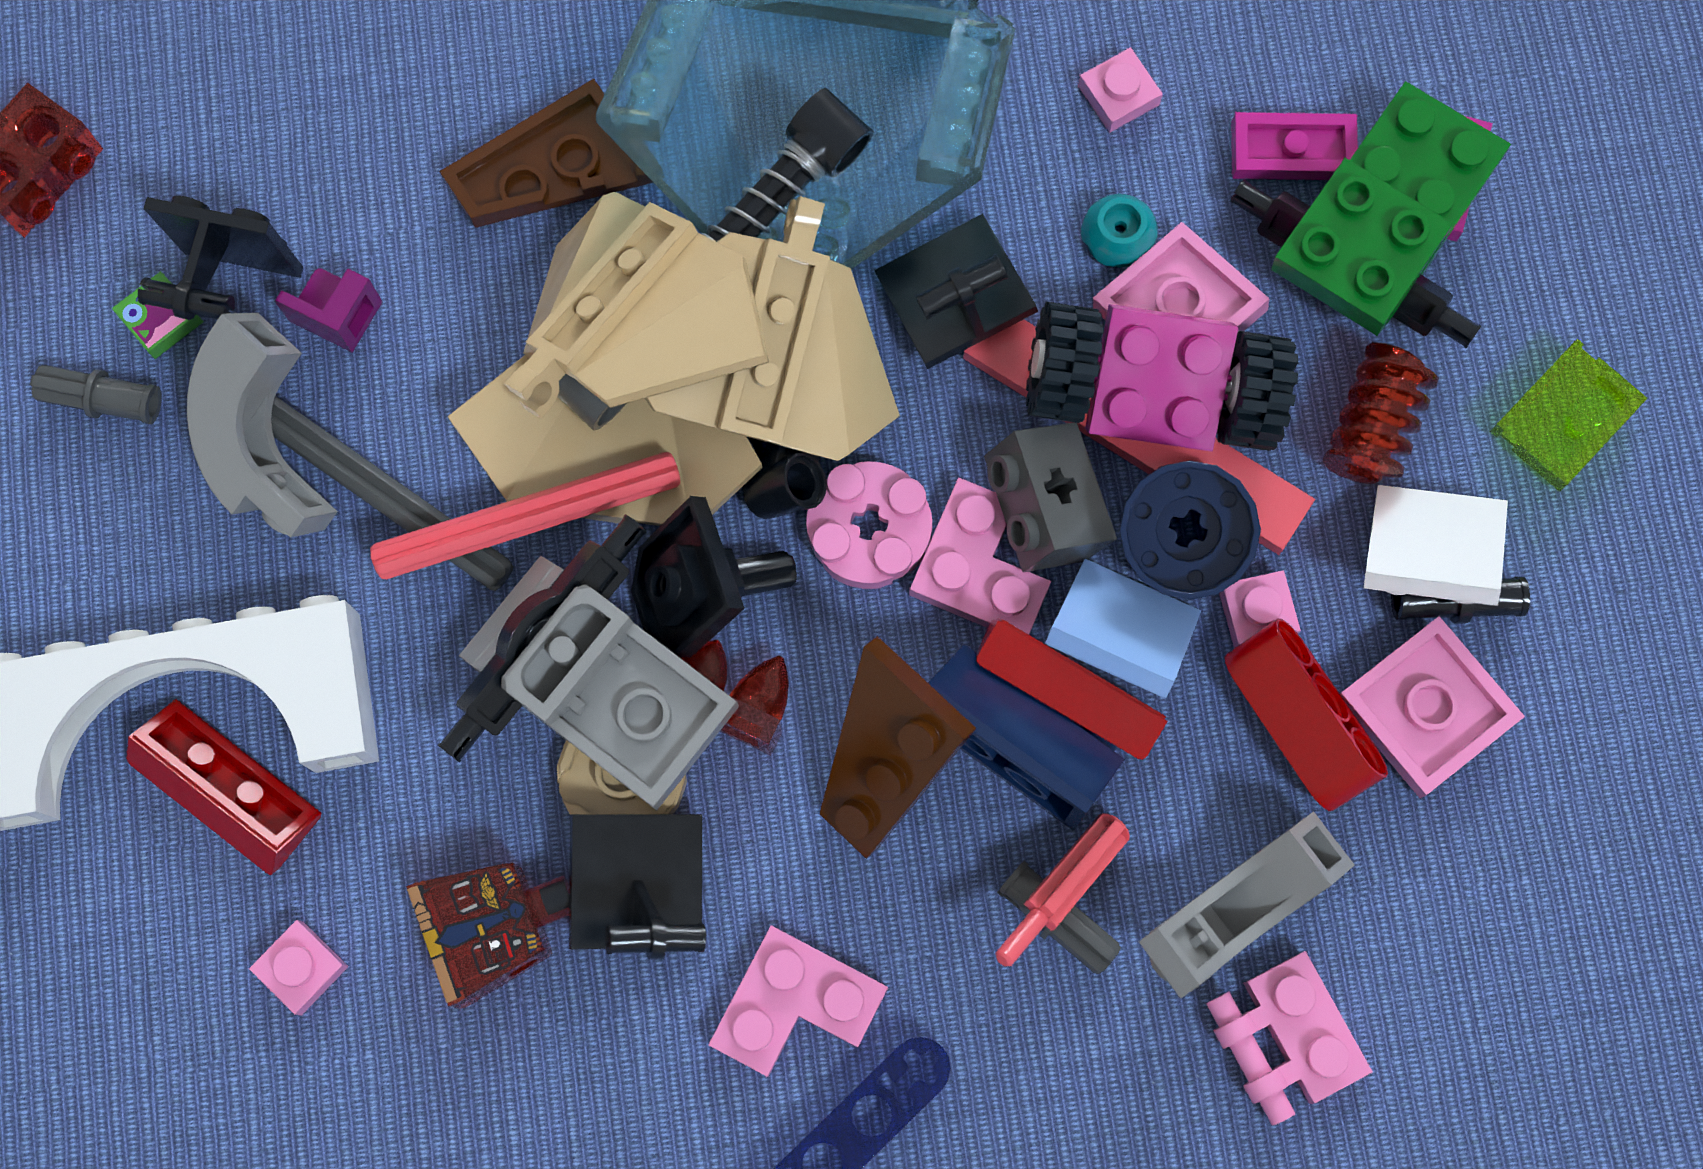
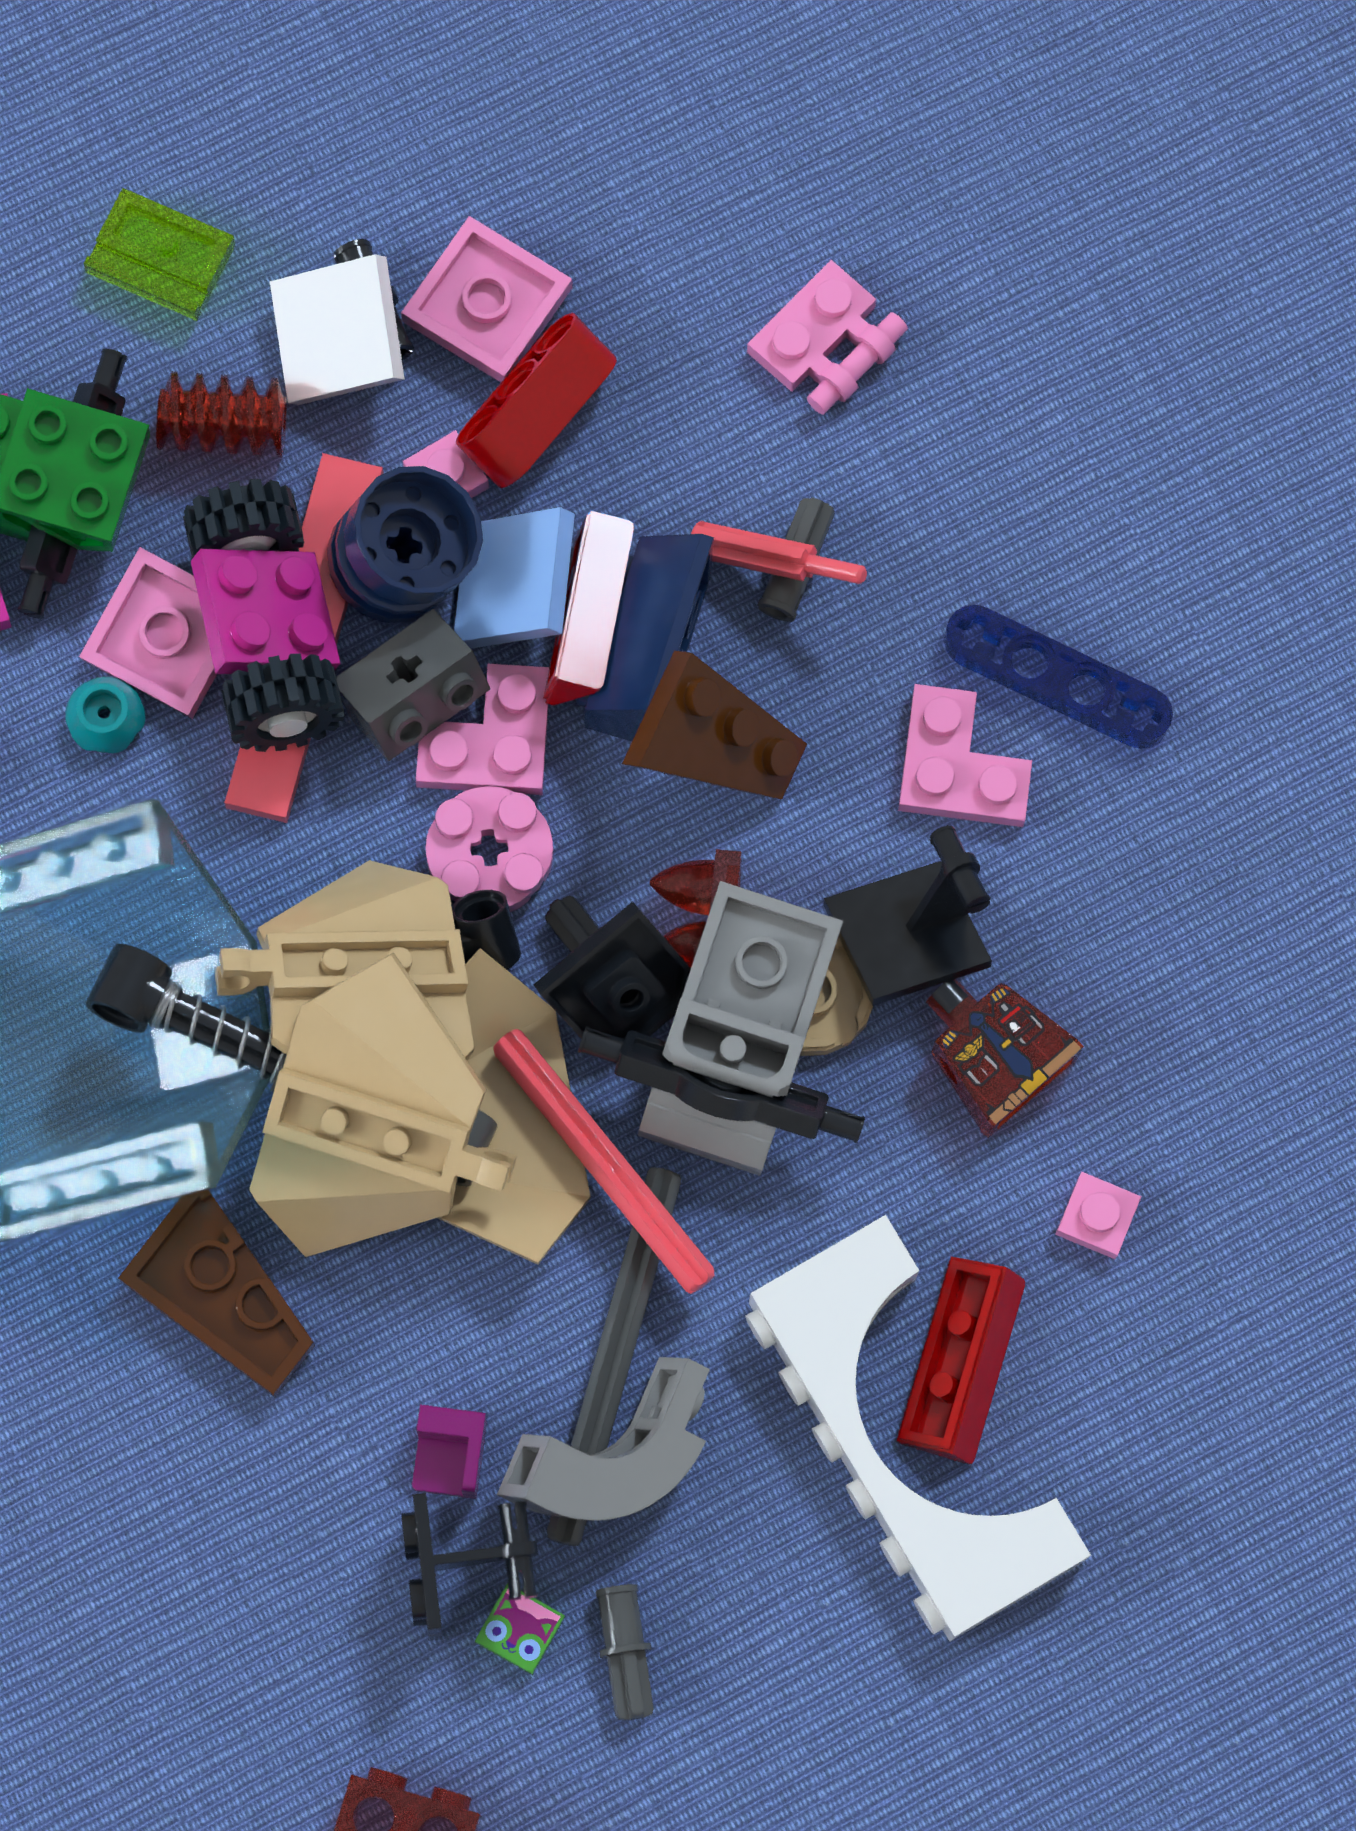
camera: 115 degrees left, 0 degrees up
(955, 291) = (240, 834): black plate -> none
(1245, 904) = (726, 404): light grey arch -> none

